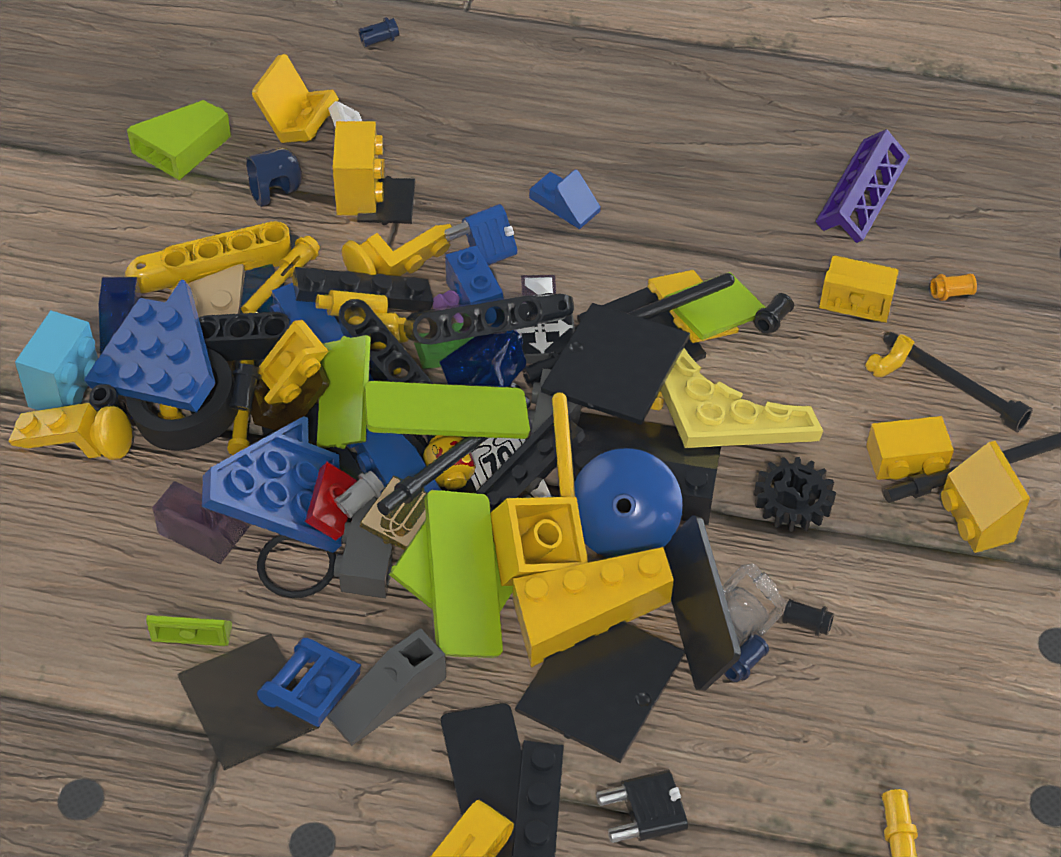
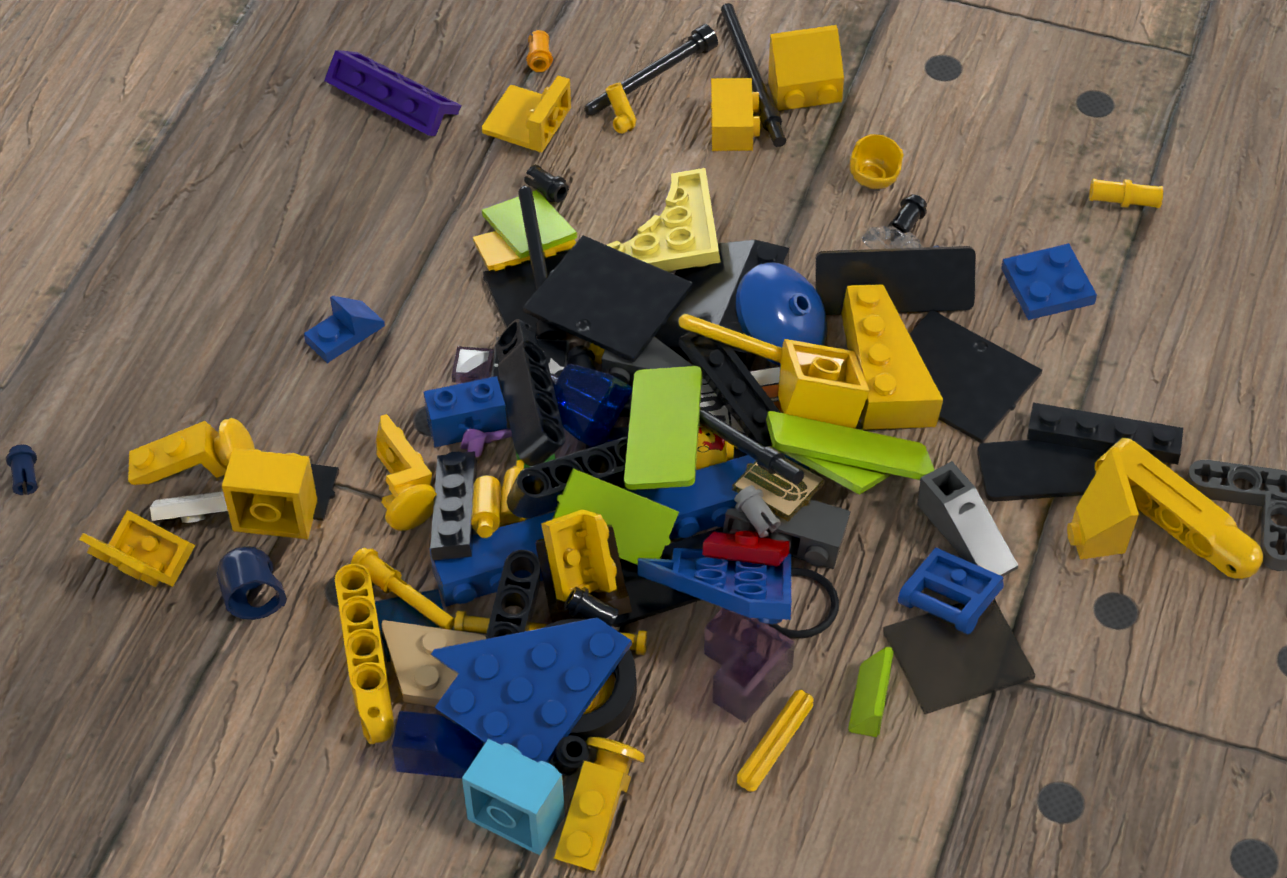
camera: 80 degrees left, 0 degrees up
(139, 556) = (775, 740): none -> yellow axle
(180, 137) = (154, 677): lime slope -> none
(411, 140) = (187, 449): none -> yellow piece
(415, 809) = (1105, 512): none -> yellow slope
(488, 231) = (398, 393): blue piece -> none
(652, 806) = (1092, 351): black piece -> none
(749, 761) = (1048, 281): none -> blue plate
(794, 493) = (772, 201): black gear -> none
(872, 577) = (876, 161): none -> yellow hair

